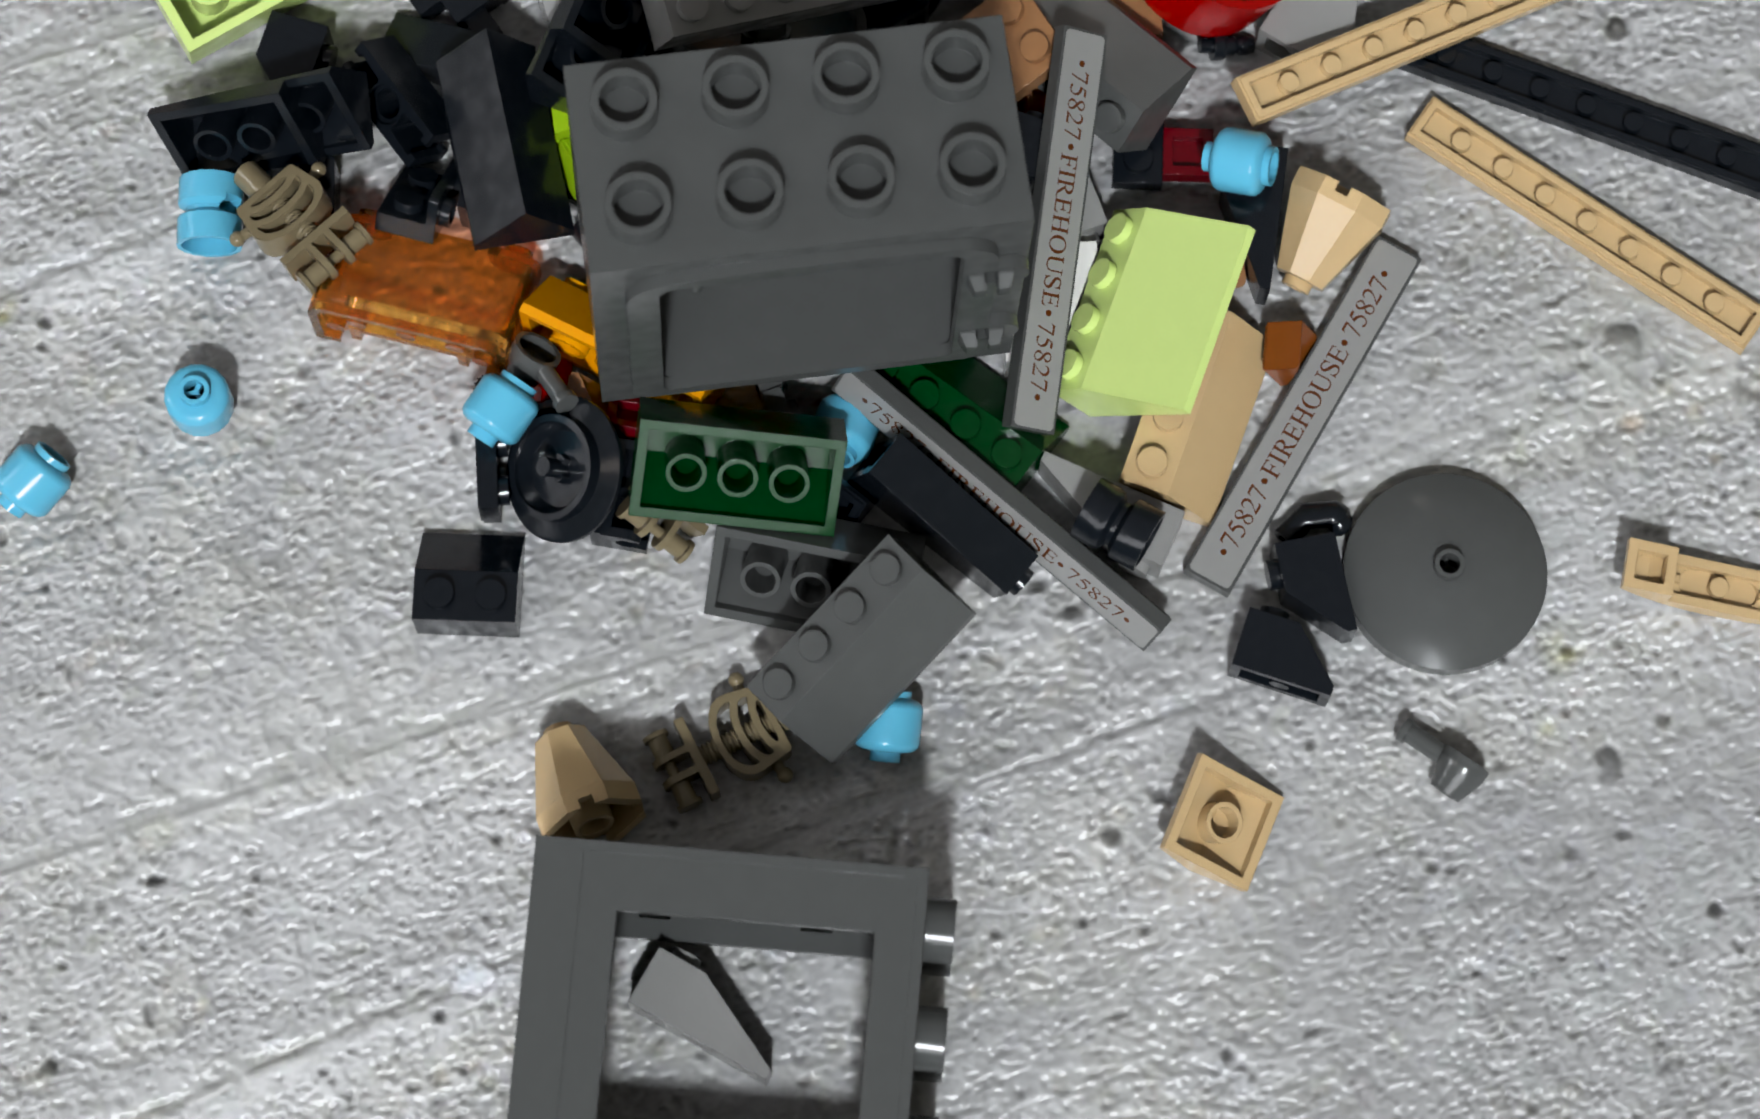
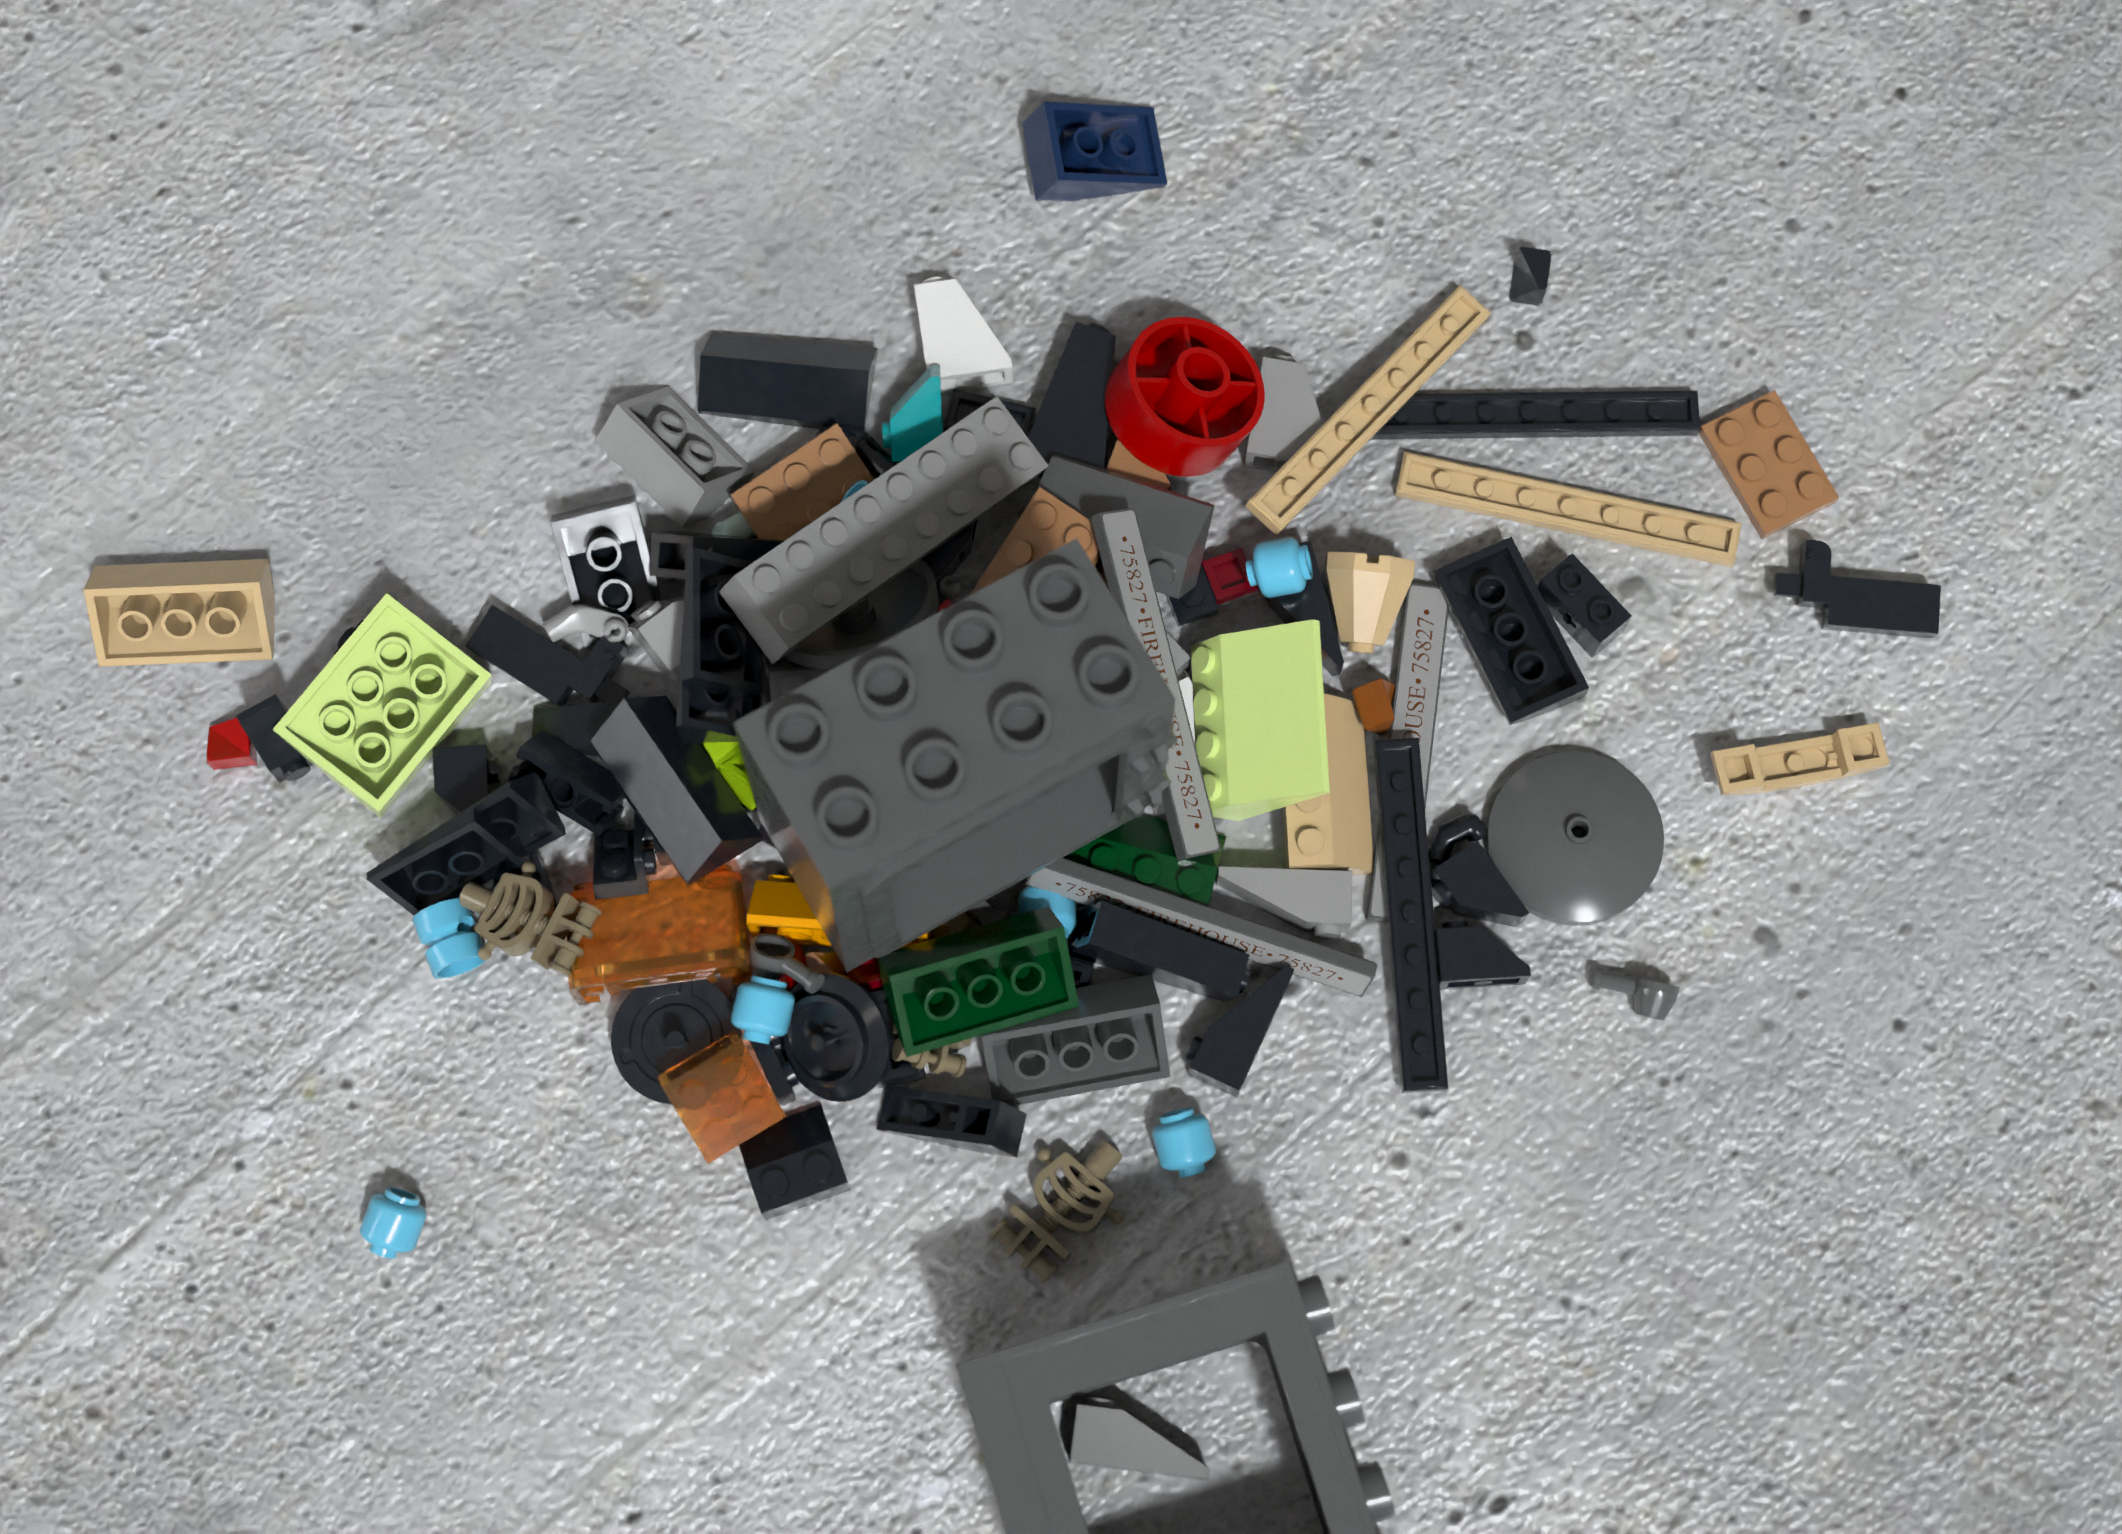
camera: 20 degrees left, 0 degrees up
(199, 400) = (518, 1106): medium azure head -> none
(399, 409) = (664, 1027): none -> black piece
(421, 483) = (721, 1096): none -> clear orange brick
(582, 787) = (957, 1298): tan cone -> none
(655, 606) = (953, 1120): none -> black slope
(861, 649) = (1143, 1092): dark grey slope -> none
(999, 637) = (1234, 1039): none -> black slope
(1115, 522) = (1306, 905): black wheel -> none
(1221, 823) = (1485, 1114): tan slope -> none
(1224, 46) = (1217, 478): black piece -> none
(1230, 582) = (1410, 916): none -> black tile
(1466, 330) = (1511, 632): none -> black slope
(1555, 330) = (1583, 605): none -> black brick

